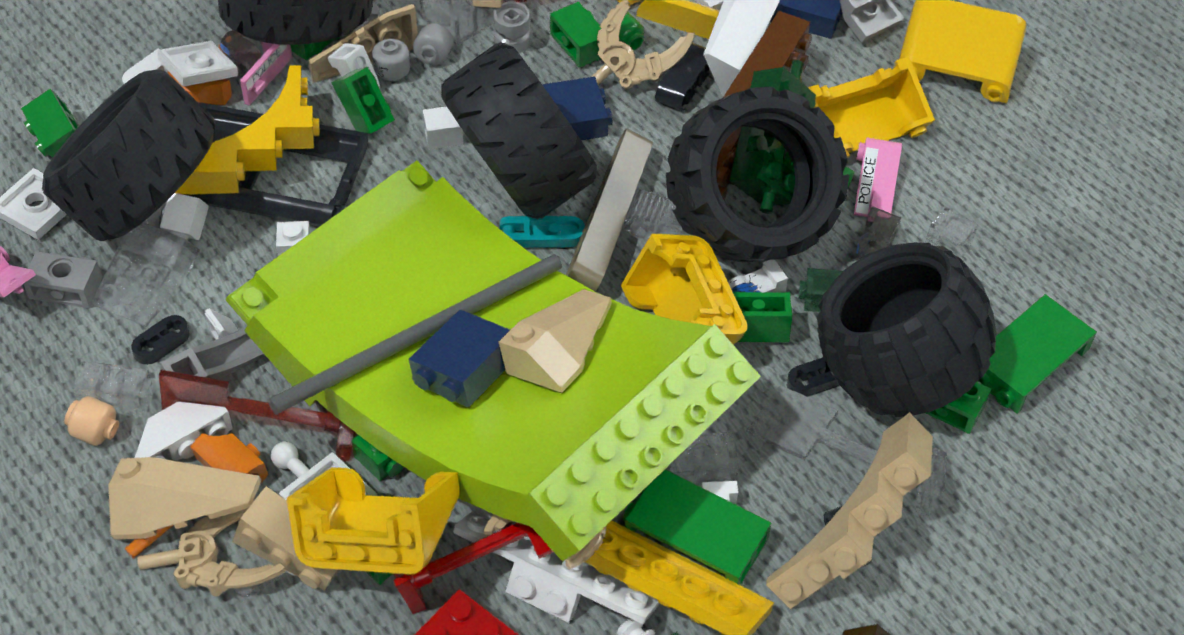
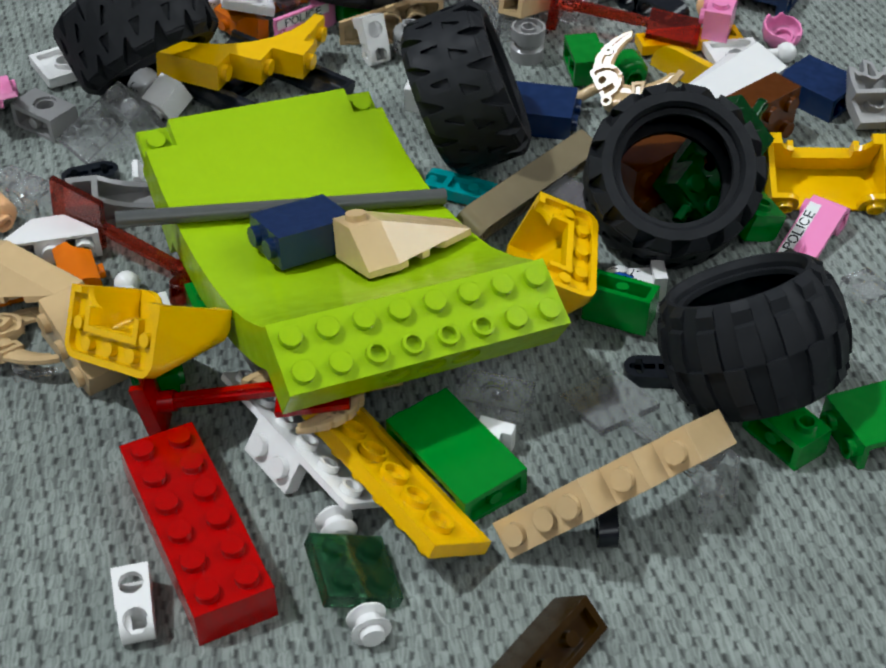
camera: 25 degrees right, 10 degrees down
(363, 100) = (363, 54): green brick -> none

